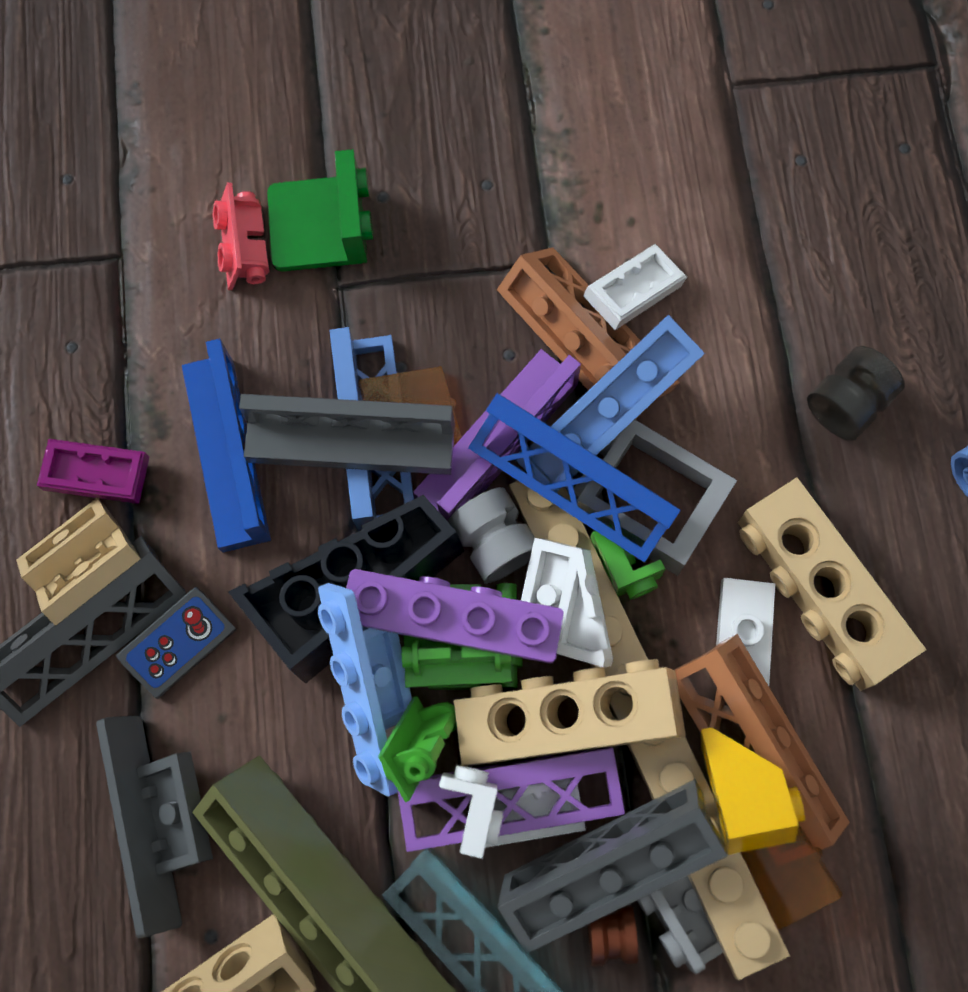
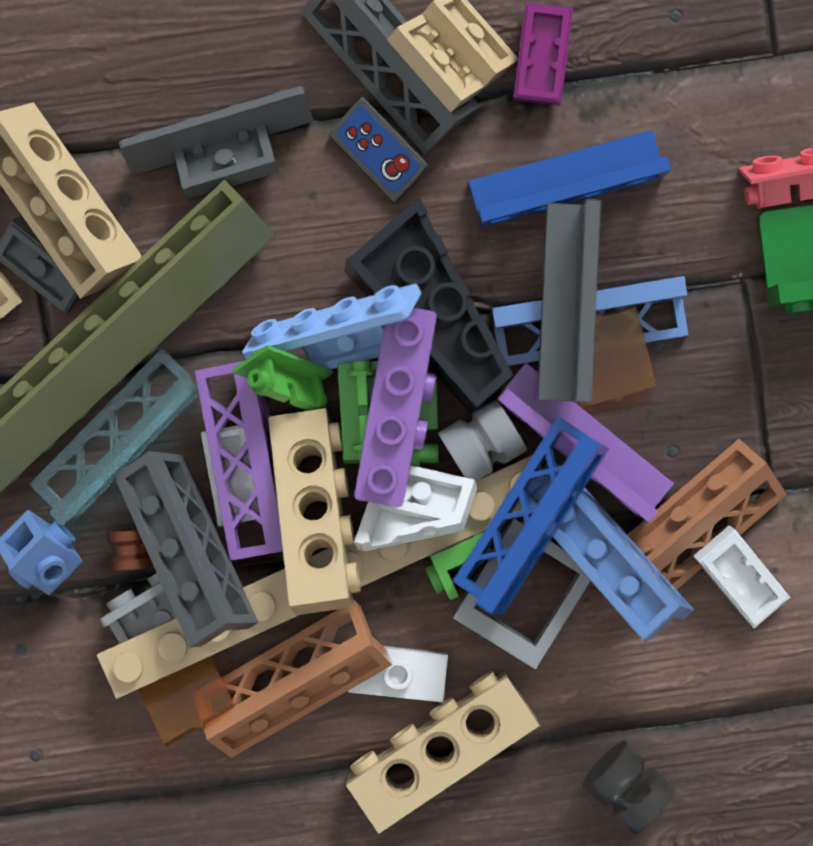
camera: 85 degrees right, 15 degrees up
(482, 820) = (218, 436): white bracket -> none
(749, 795) = (244, 669): yellow slope -> none

